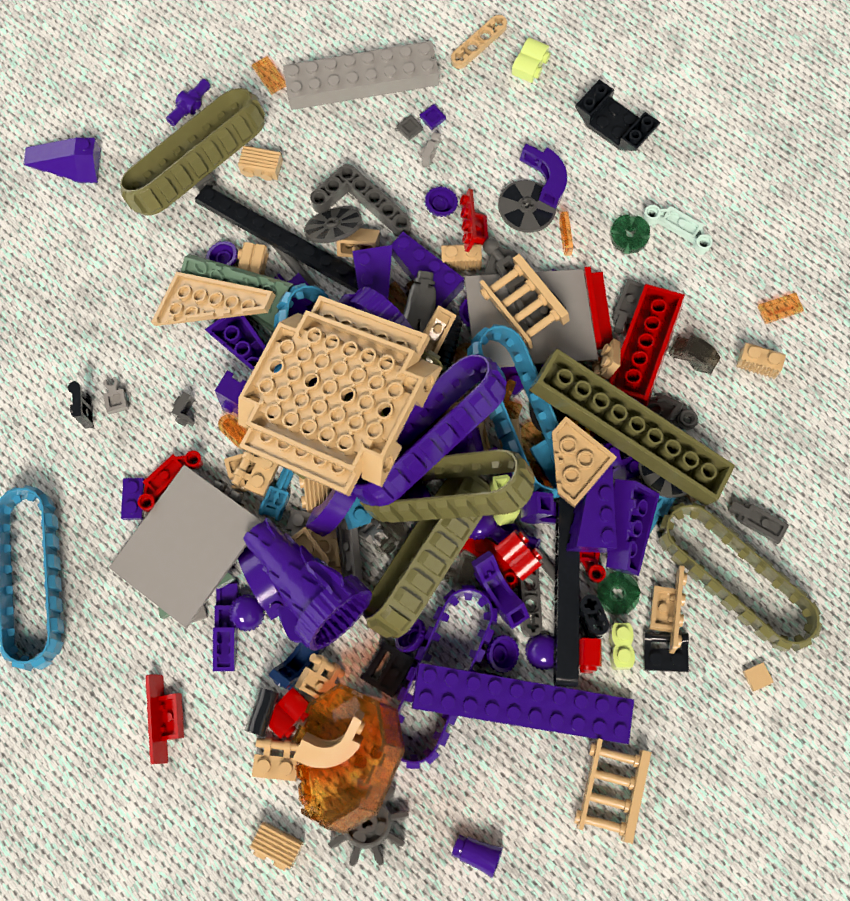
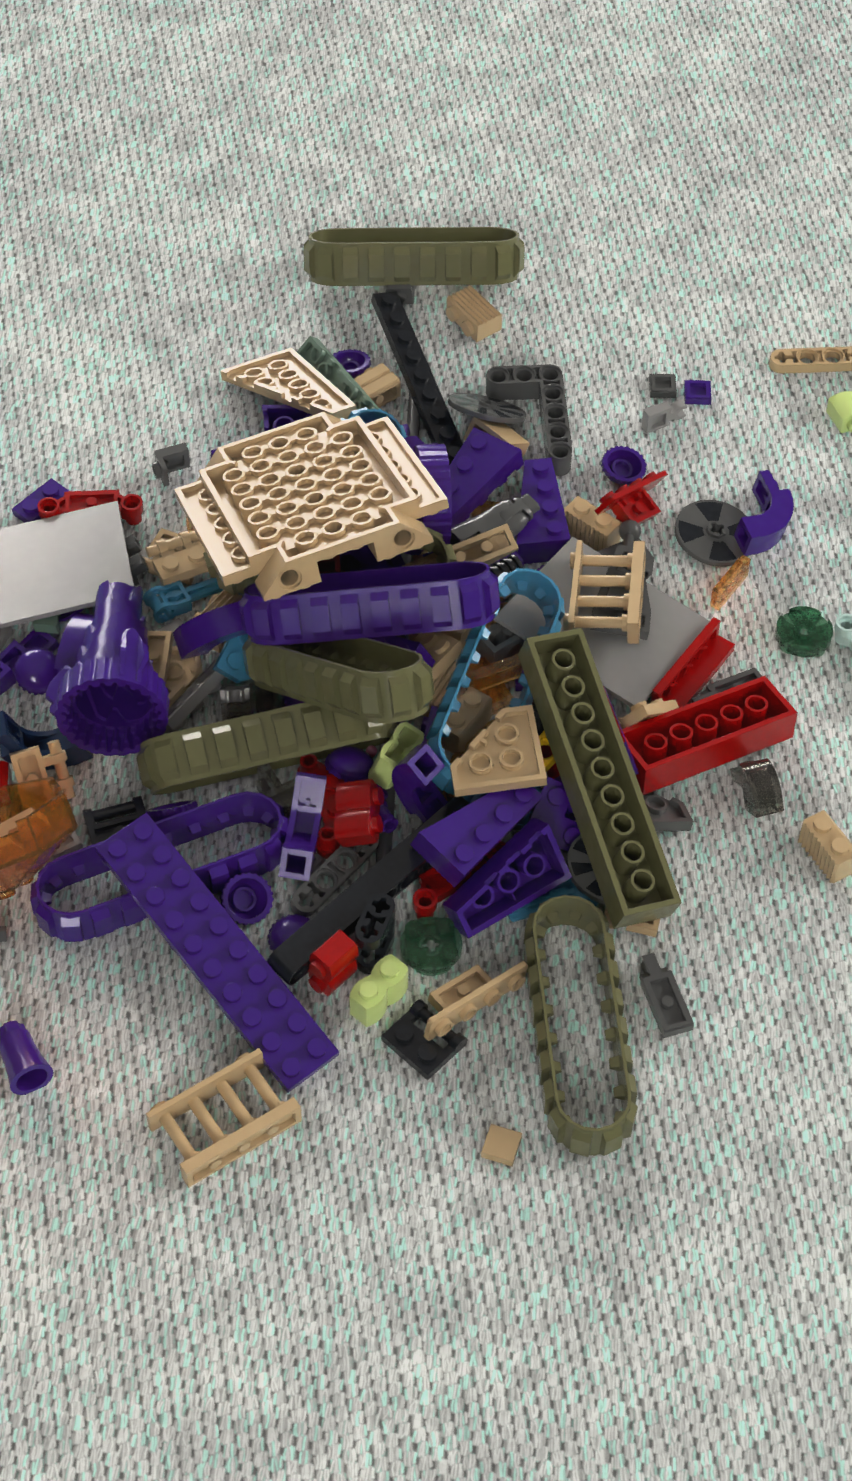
camera: 35 degrees right, 20 degrees down
(68, 158) = (293, 194): dark purple wedge -> none
(81, 405) = (78, 387): black plate -> none
(115, 399) = (118, 410): light grey plate -> none
(188, 102) = (457, 217): dark purple pin -> none
(269, 75) = (564, 251): clear orange tile -> none
(361, 75) = (658, 307): light grey piece -> none
(690, 414) = (687, 837): dark grey plate -> none

